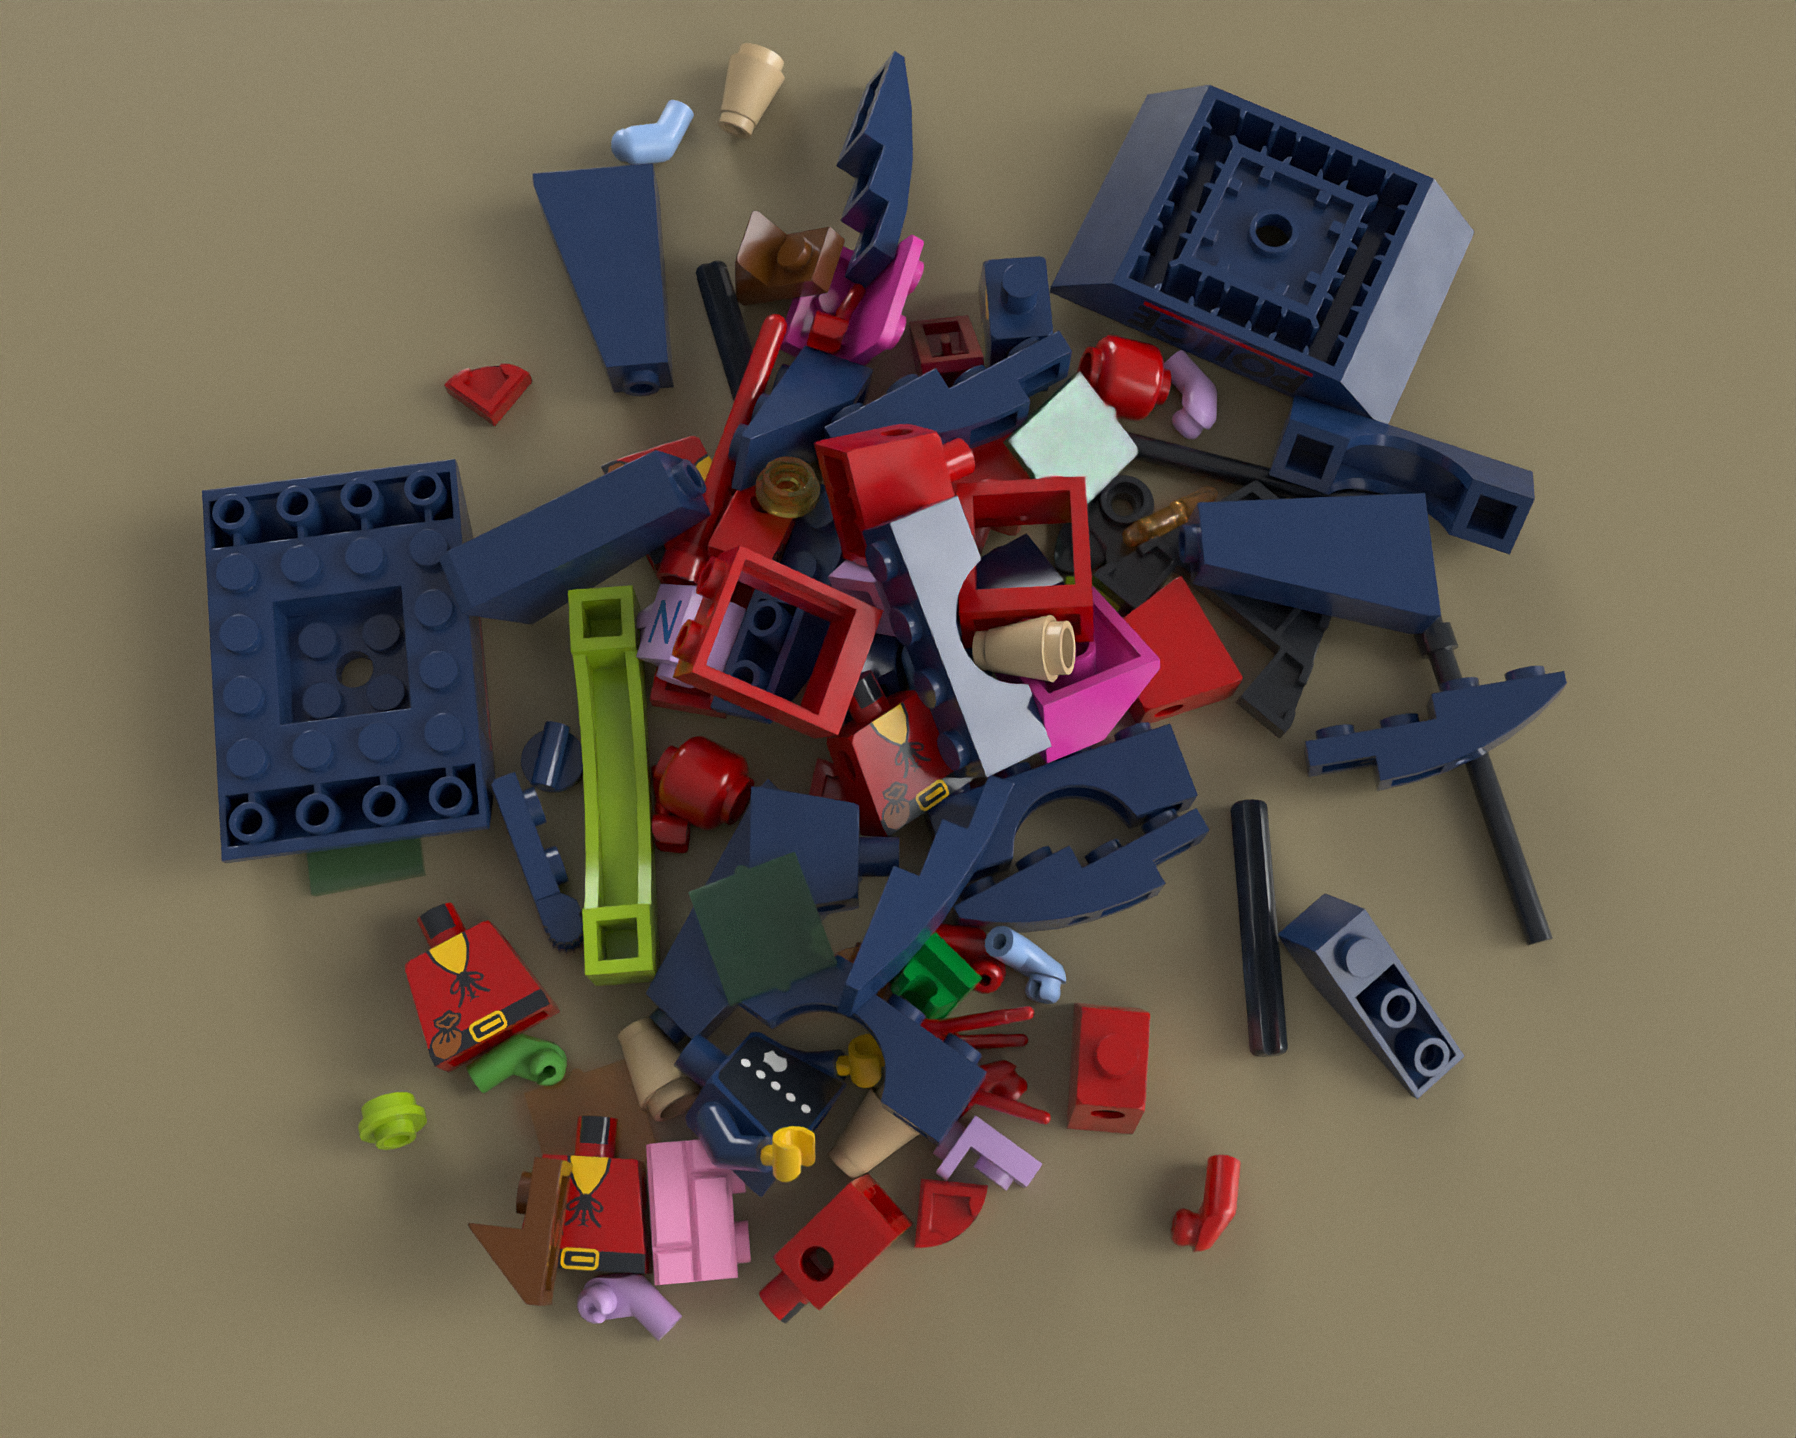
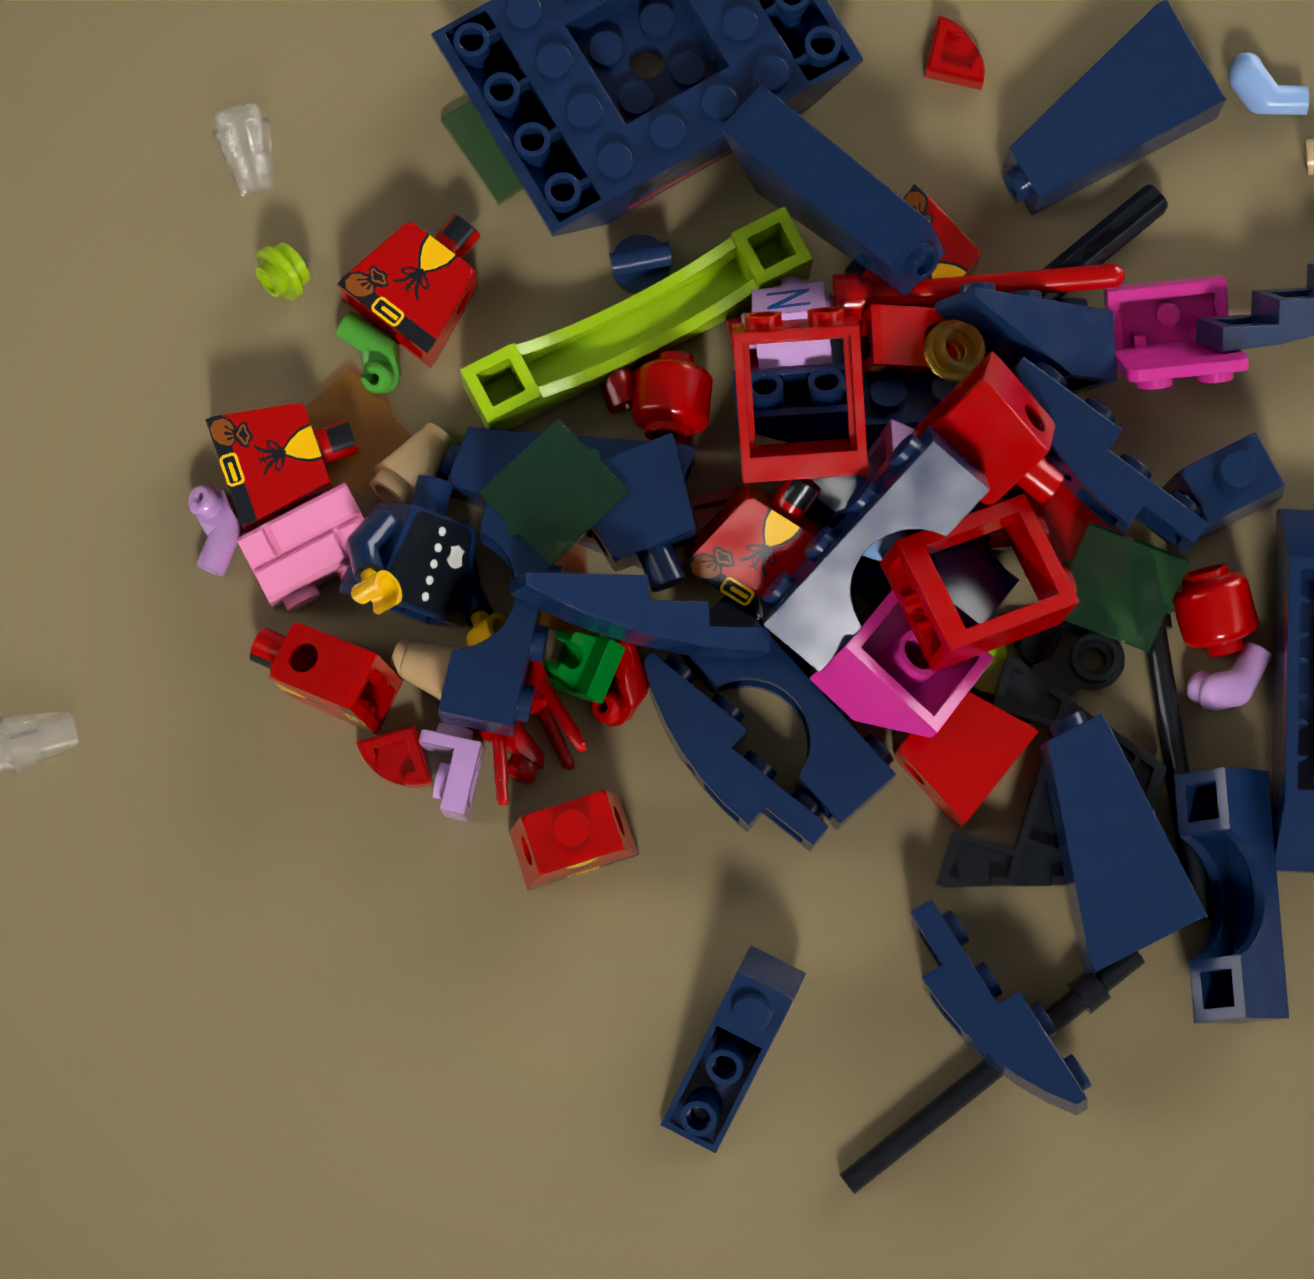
camera: 65 degrees right, 5 degrees up
(242, 1104) = (246, 146): none -> clear cone
(532, 1253) = (219, 428): reddish brown slope -> none
(540, 866) = (542, 294): dark blue hinge -> none
(784, 265) = (1182, 257): reddish brown slope -> none
(828, 329) = (1133, 326): red hand -> none
(945, 345) = (1167, 438): dark red slope -> none
(1027, 649) = (893, 615): tan cone -> none
(1028, 959) = (639, 735): light blue arm -> none
(1166, 518) = (1097, 703): clear orange piece -> none
(1217, 1209) = (495, 981): red arm -> none
(1258, 928) = (753, 928): black axle -> none

